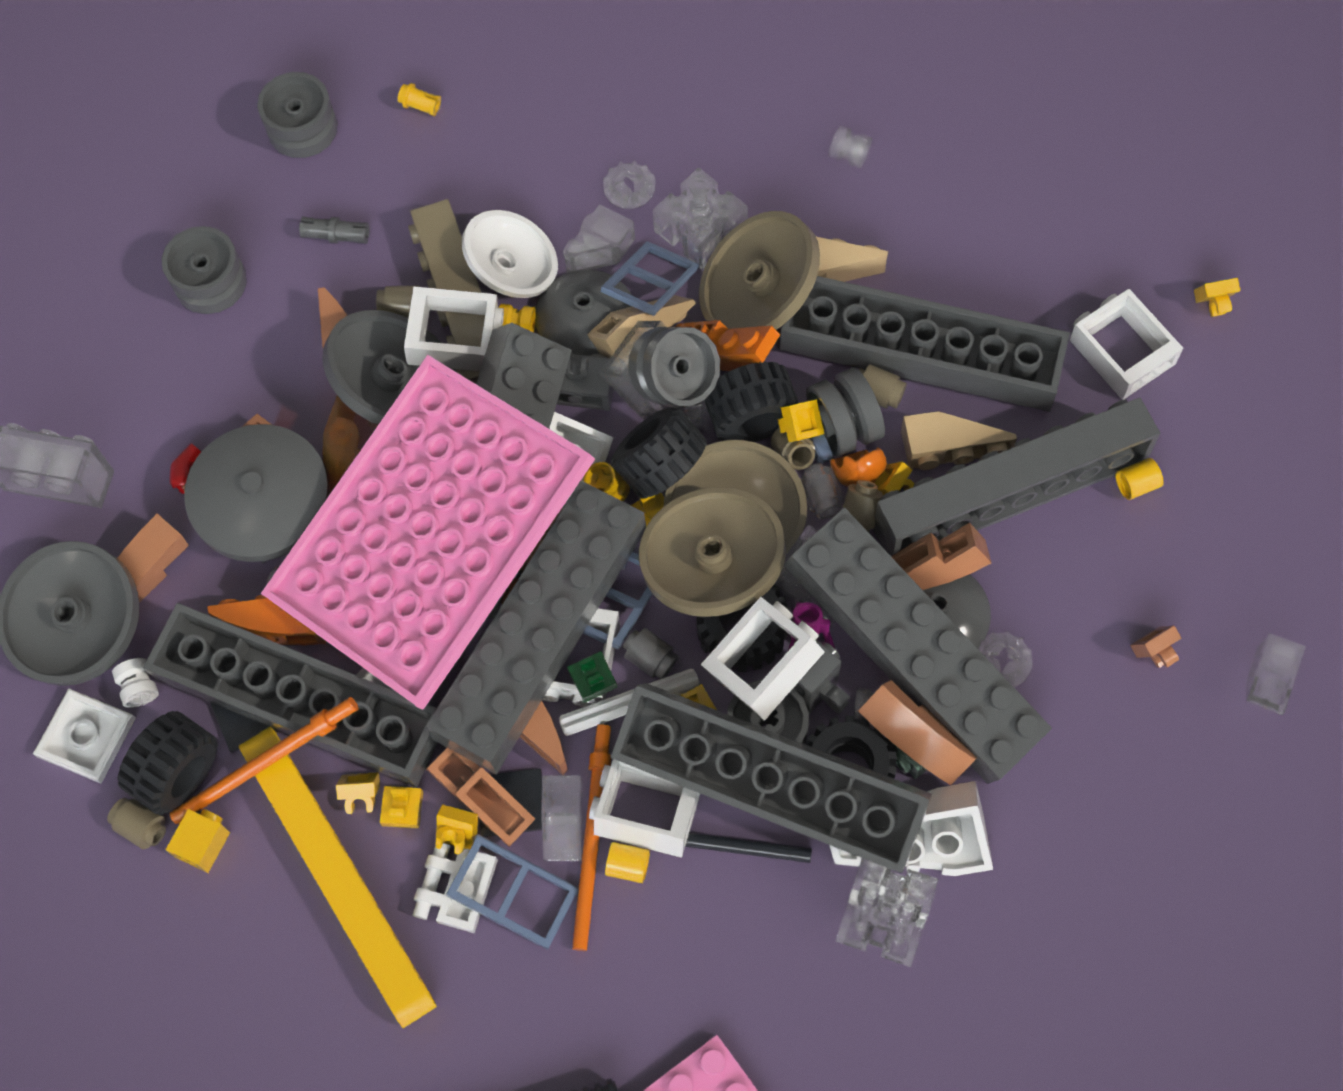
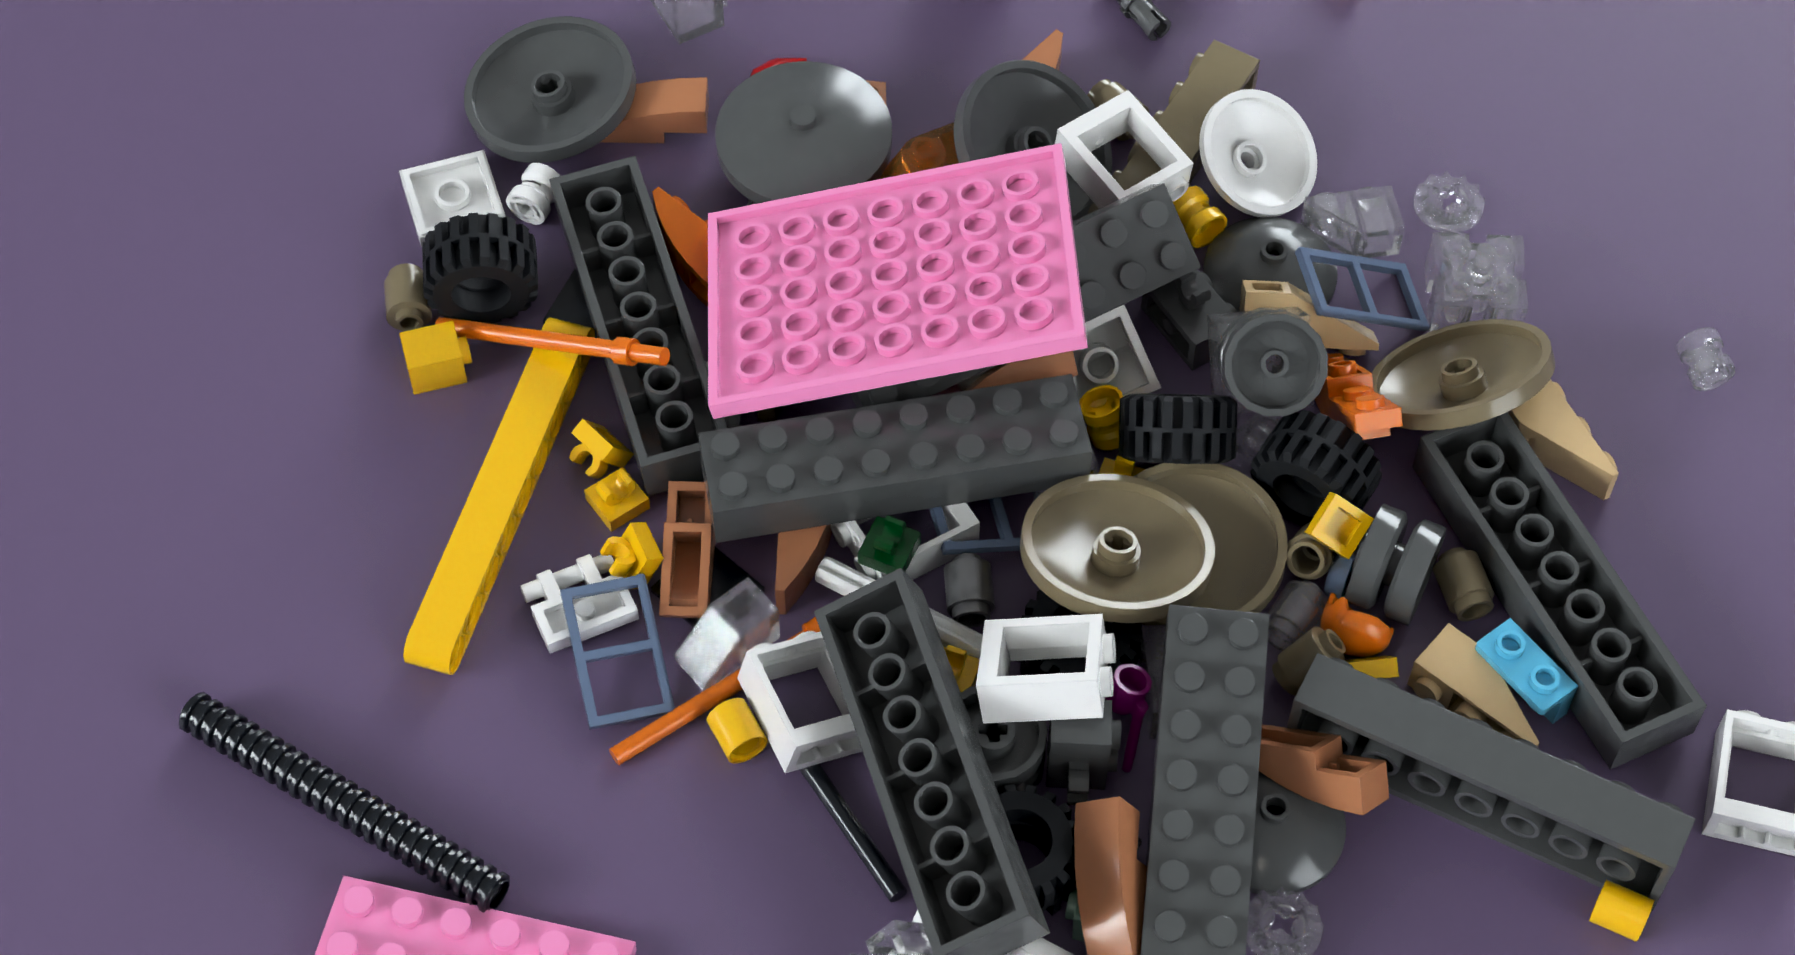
camera: 45 degrees right, 10 degrees down
(964, 401) = (1528, 670): none -> medium azure bracket

